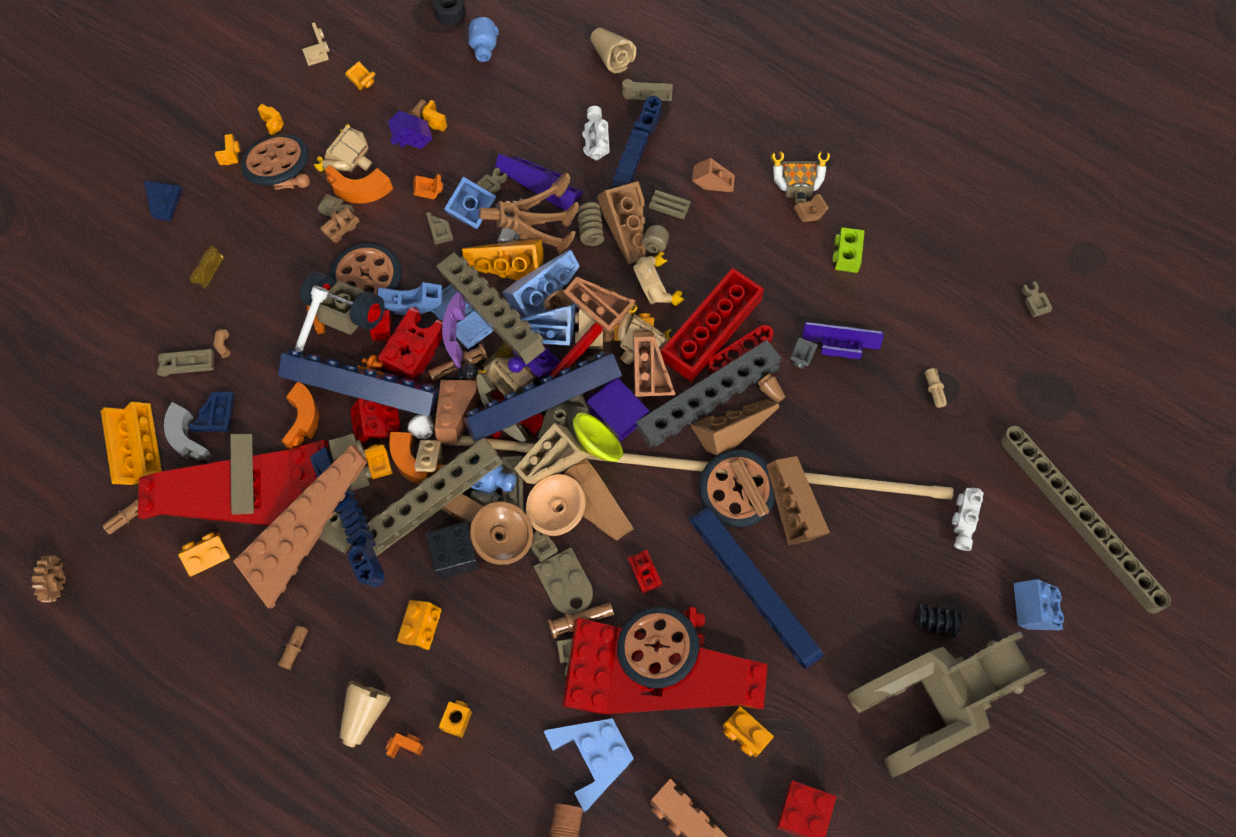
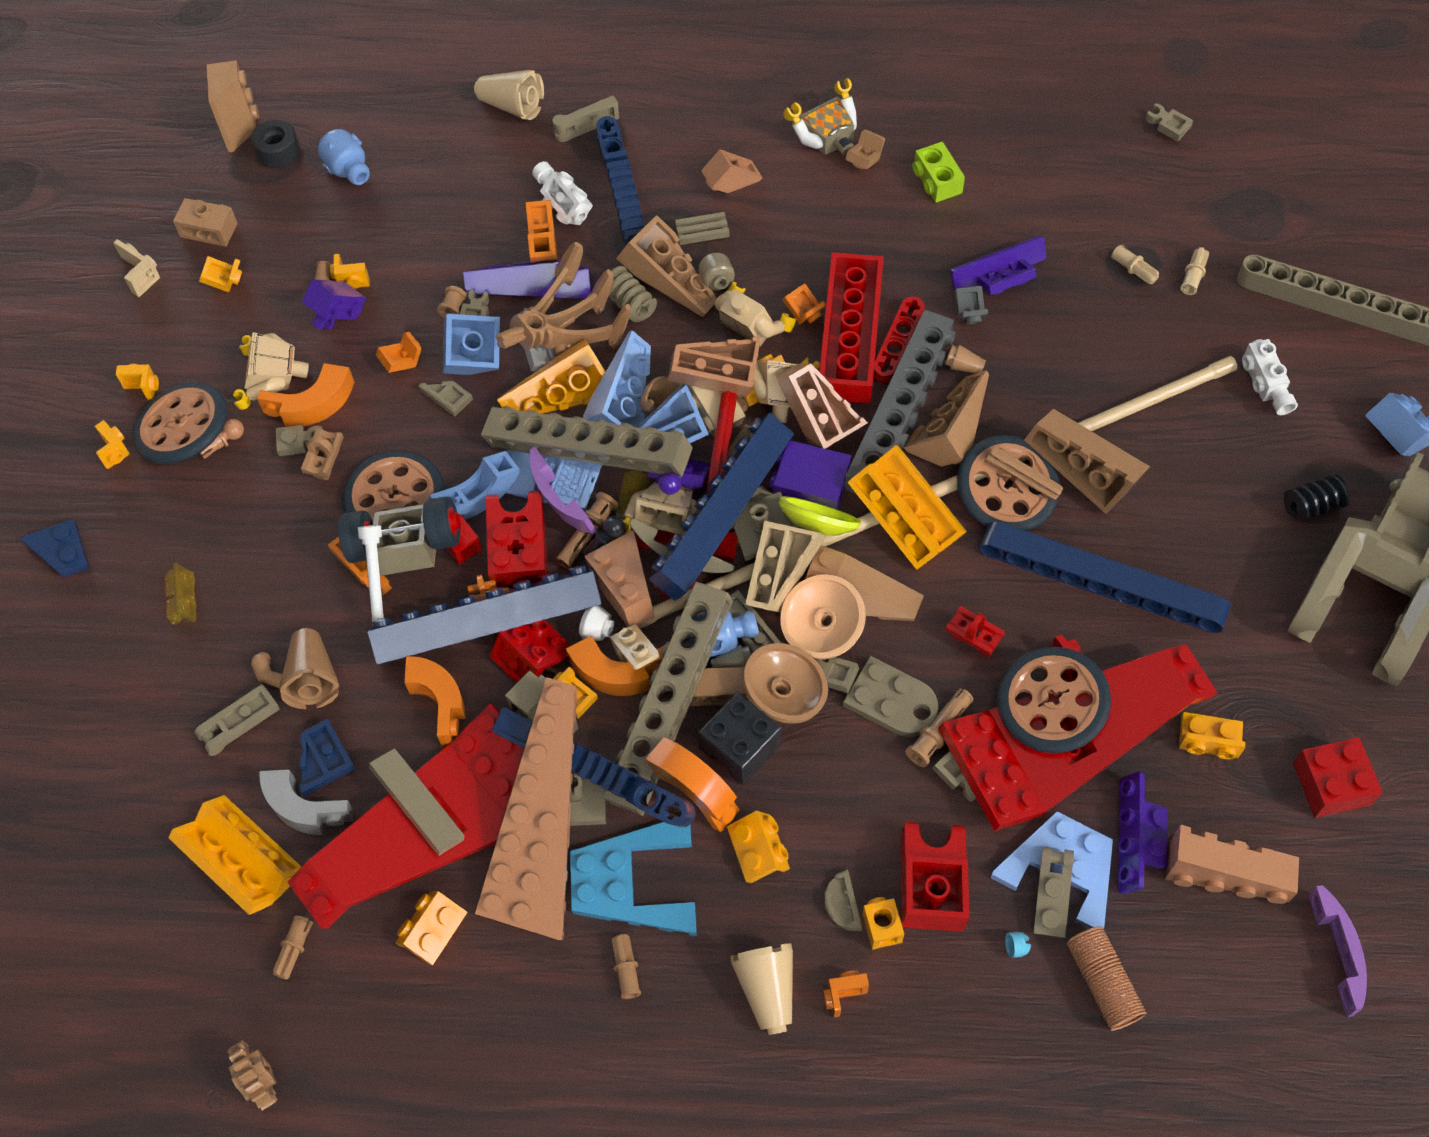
camera: 30 degrees left, 5 degrees down
(240, 356) = (308, 672): none -> medium nougat cone
(317, 590) = (605, 880): none -> dark azure wing
(374, 37) = (205, 222): none -> medium nougat brick
(402, 562) = (696, 780): none -> orange arch
(443, 689) = (841, 903): none -> dark tan tile
(481, 169) = (452, 302): none -> medium nougat bush
(508, 706) = (937, 871): none -> red brick
(526, 783) = (1016, 944): none -> medium azure hinge
(566, 154) = (541, 231): none -> orange arch
(570, 768) = (1053, 893): none -> dark tan plate
(654, 767) = (1141, 833): none -> dark purple bracket
(659, 465) = (907, 507): none -> light orange slope
(695, 292) = (804, 305): none -> orange bracket
(974, 415) = (1195, 271): none -> tan axle

